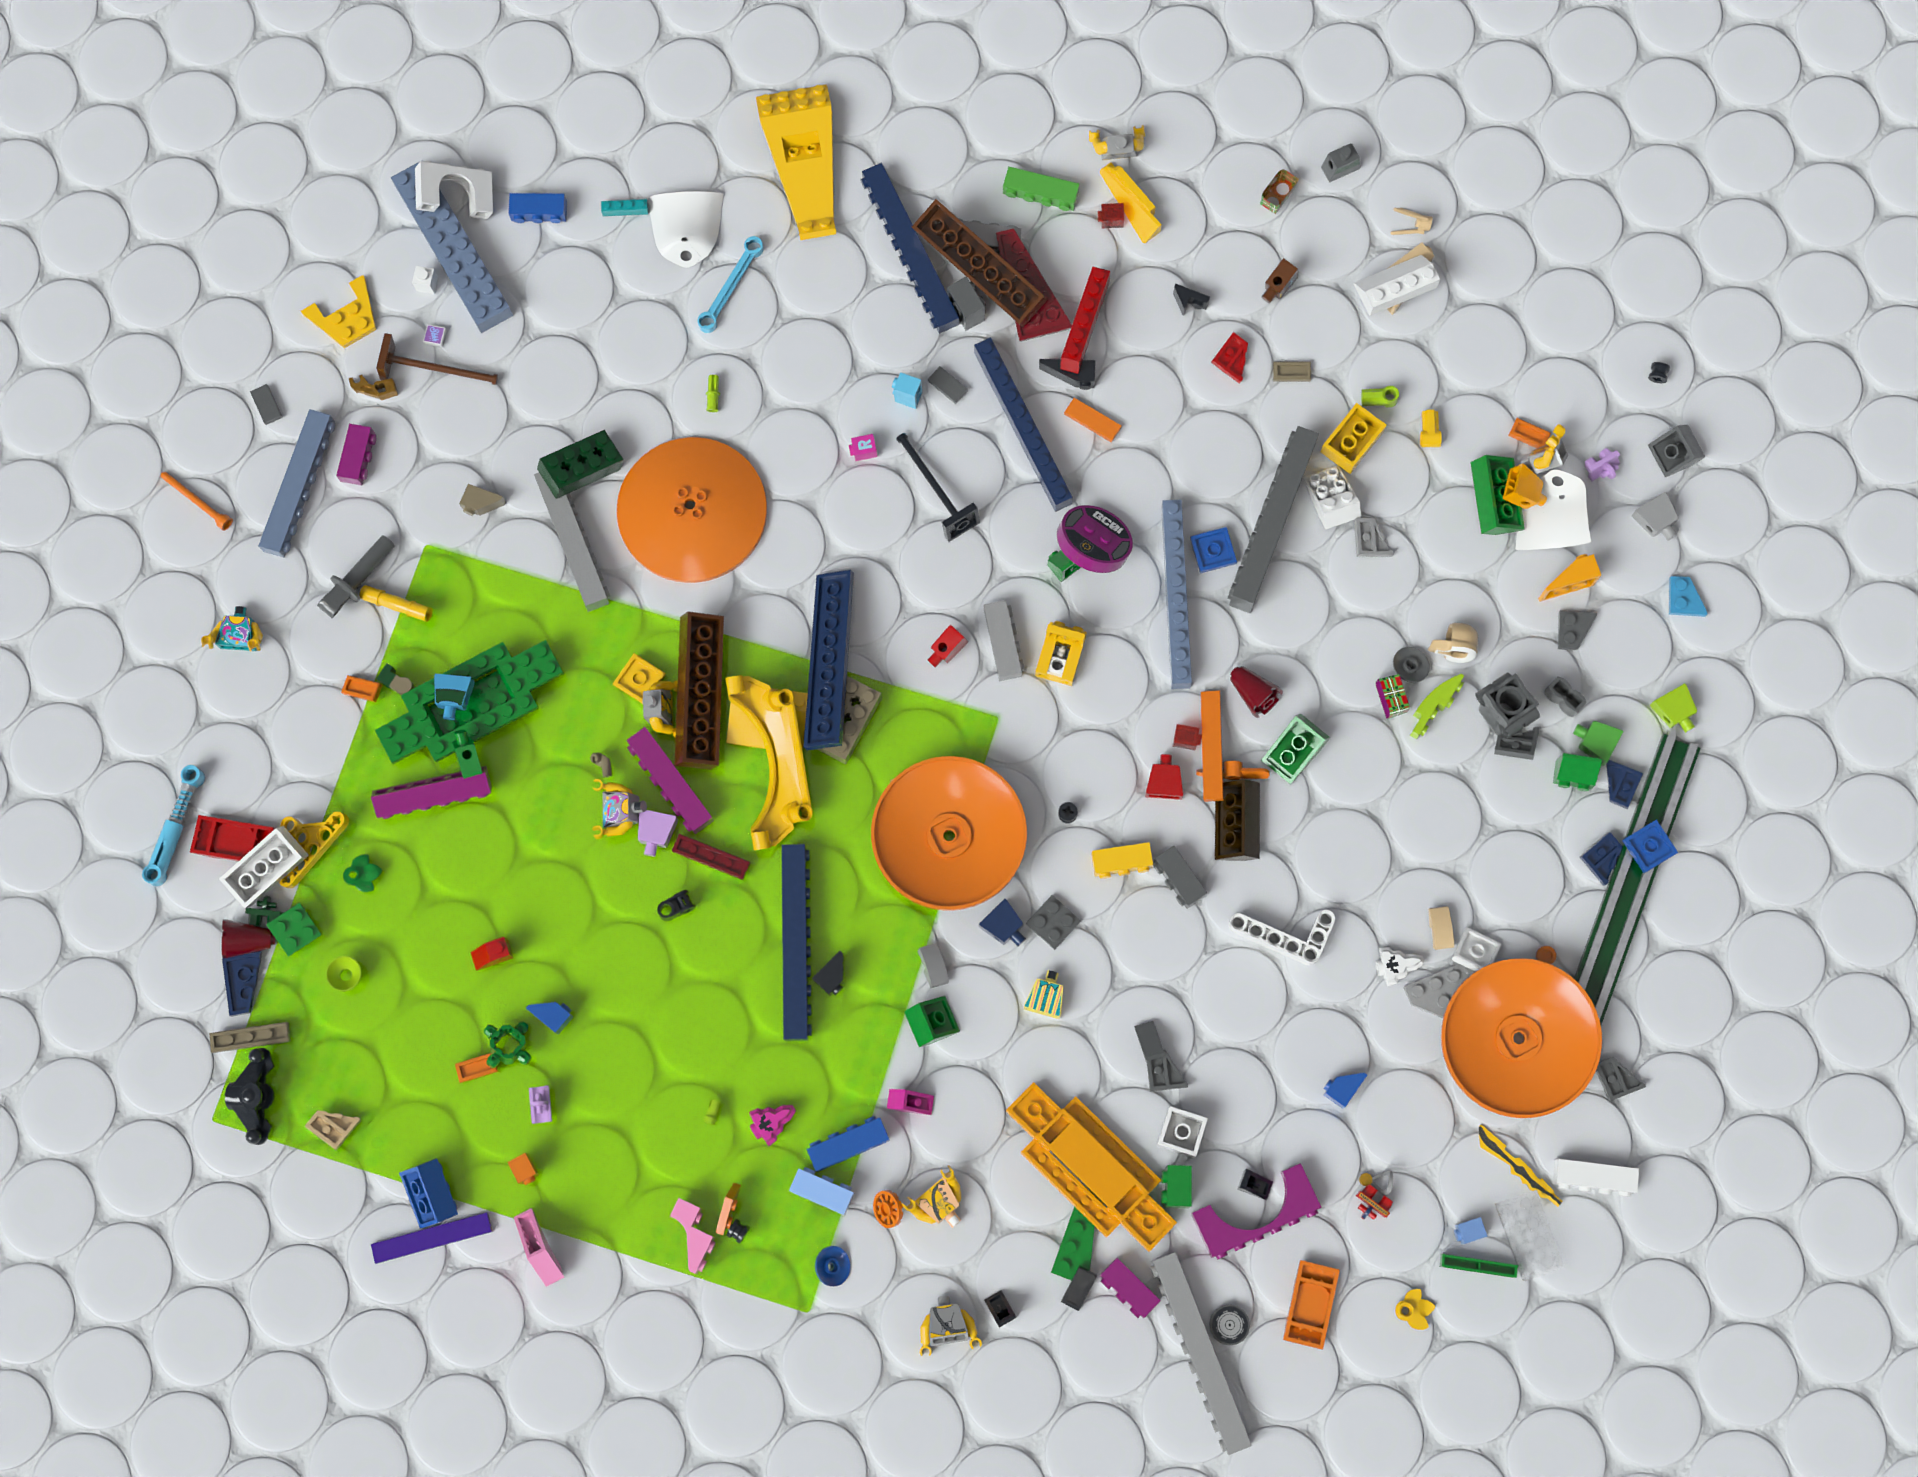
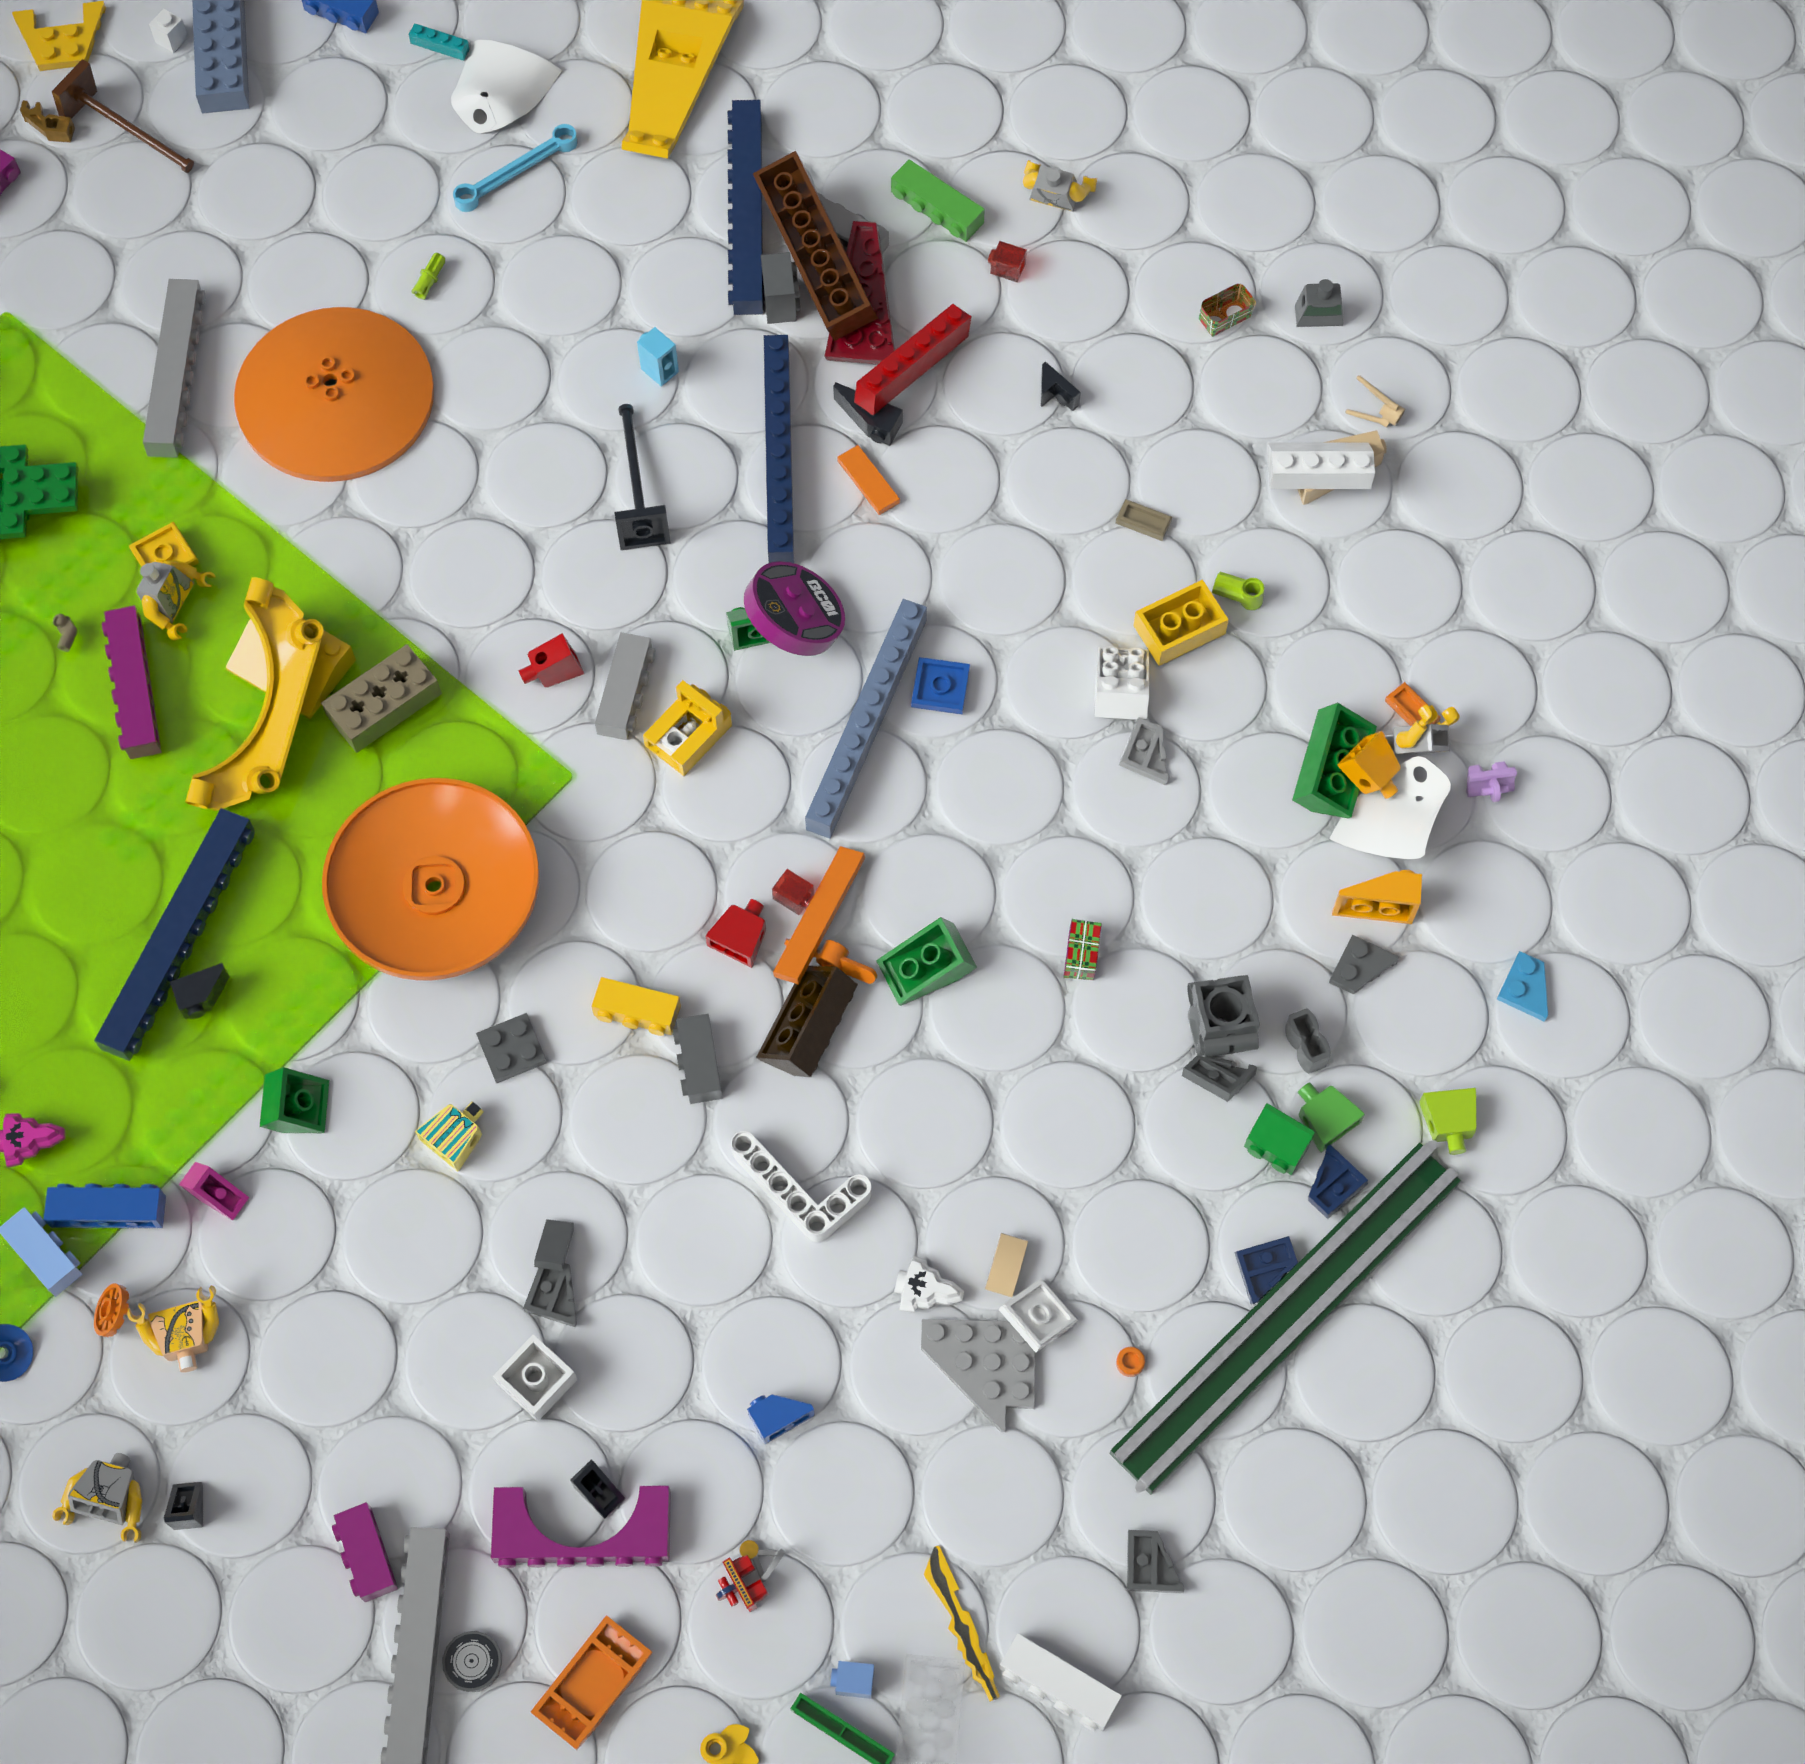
camera: 20 degrees right, 10 degrees down
(434, 335) = (147, 94): tile -> none
(480, 501) = (93, 286): dark tan slope -> none
(580, 464) = (227, 287): dark green brick -> none
(620, 809) = (51, 688): torso -> none
(655, 830) = (82, 731): lavender torso -> none
(677, 906) = (61, 831): black piece -> none
(699, 690) = (220, 591): reddish brown brick -> none
(711, 857) = (133, 792): dark red tile -> none
(829, 660) = (394, 618): dark blue plate -> none
(863, 447) = (573, 402): dark pink brick -> none
(934, 965) = (332, 1035): light grey slope -> none
(947, 385) = (713, 373): dark grey tile -> none
(1003, 924) = (446, 1022): dark blue torso -> none
(1067, 817) = (601, 927): black wheel -> none
(1075, 1246) = (322, 1473): green wing -> none
(1079, 1288) = (300, 1522): black tile -> none
(1097, 1160) = (407, 1368): light orange piece -> none
(1136, 204) = (1042, 259): yellow wedge -> none
(1177, 1186) = (491, 1444): green brick -> none
(1232, 357) = (1076, 473): red wing -> none
(1255, 690) = (908, 872): dark red cone -> none
(1270, 525) = (1030, 676): dark grey brick -> none
(1285, 275) = (1178, 408): reddish brown torso -> none
(1415, 660) = (1131, 915): dark grey dish -> none
(1430, 433) = (1283, 657): yellow piece -> none
(1438, 698) = (1141, 976): lime slope -> none
(1459, 644) = (1199, 922): tan piece -> none
(1558, 1045) = (1031, 1394): orange dish -> none
(1650, 846) = (1332, 1274): blue plate -> none
(1657, 516) = (1533, 870): light grey torso -> none
(1659, 372) = (1615, 699): black wheel -> none
(1676, 450) = (1596, 800): dark grey slope -> none

